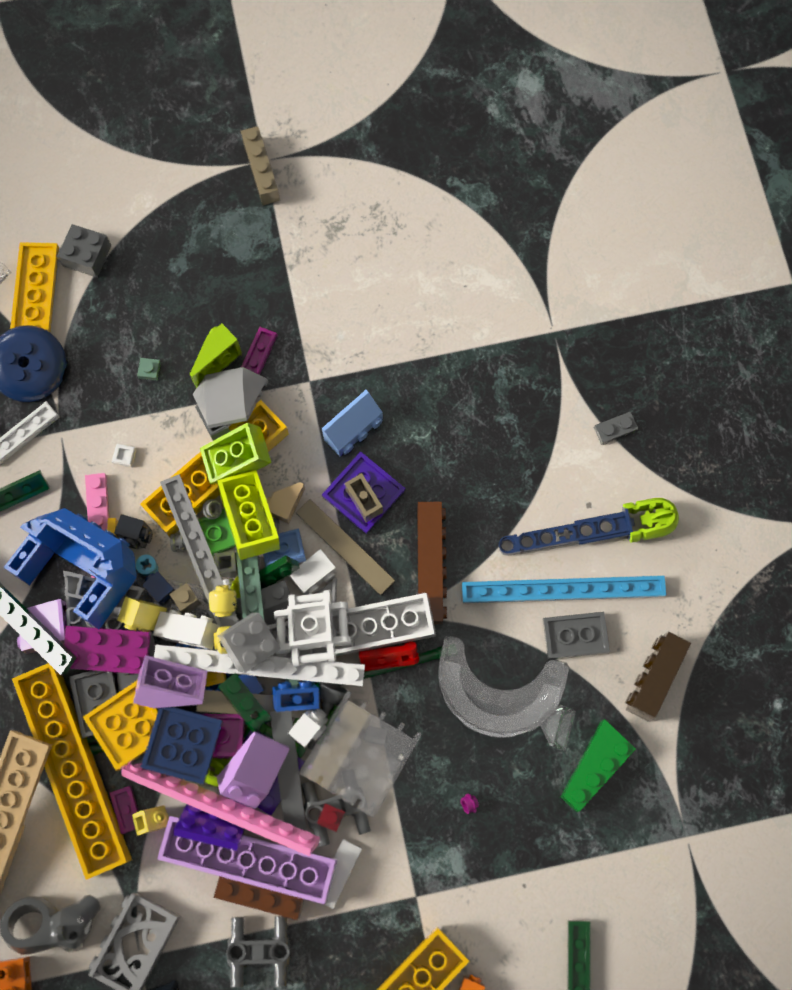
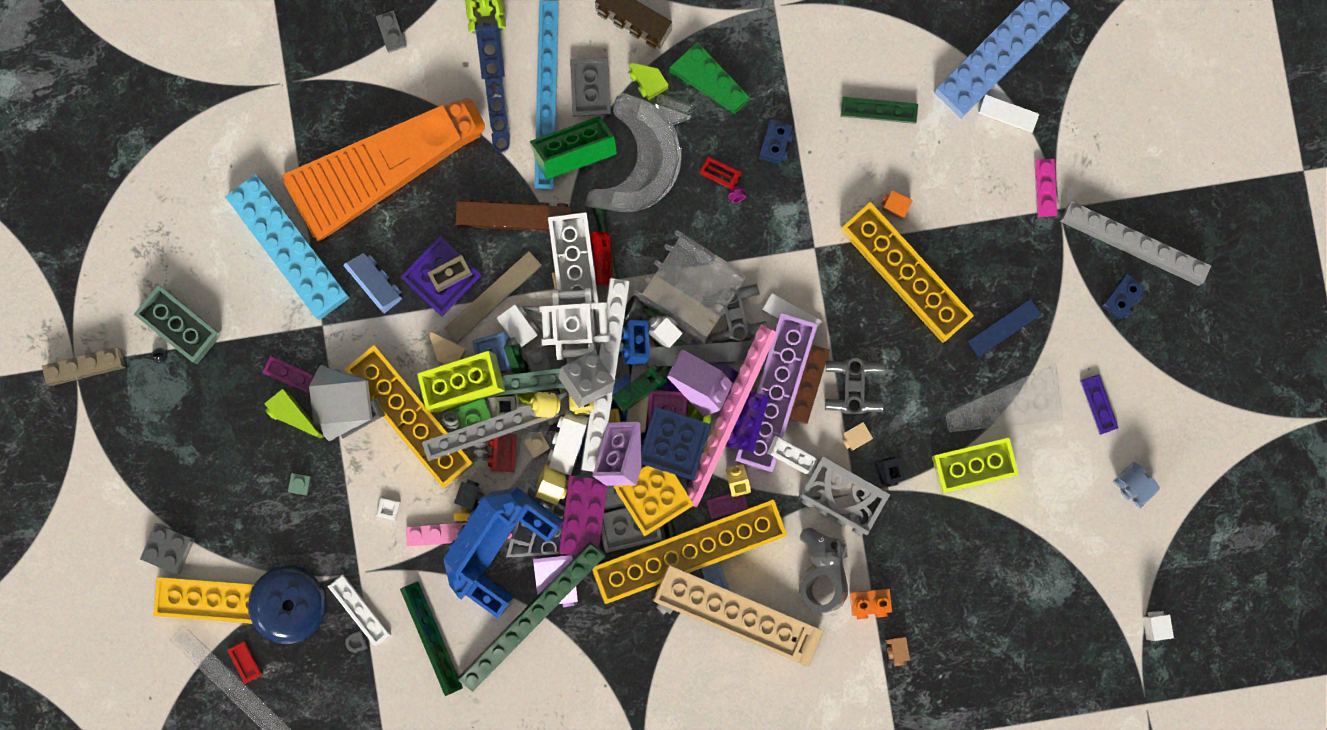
camera: 90 degrees left, 10 degrees up
(41, 803) = (715, 575): none -> medium blue plate
(145, 560) = (499, 478): medium azure bush -> none
(158, 587) = (525, 470): dark blue brick -> none
(176, 882) = (792, 456): none -> white tile
(177, 565) = (503, 453): none -> red bracket
(201, 956) = (856, 437): none -> tan brick
(235, 453) = (400, 393): lime slope -> none
(278, 233) = (159, 359): none -> black hinge
(303, 244) = (177, 324): none -> sand green brick
(330, 817) = (743, 317): dark red plate -> none
(385, 341) = (287, 247): none -> medium azure brick
(468, 414) = (364, 173): none -> orange brick
(485, 799) = (733, 180): none -> red tile
(508, 620) = (573, 147): none -> green slope
(531, 845) = (775, 142): none -> dark blue brick
(589, 699) = (649, 79): none -> lime slope

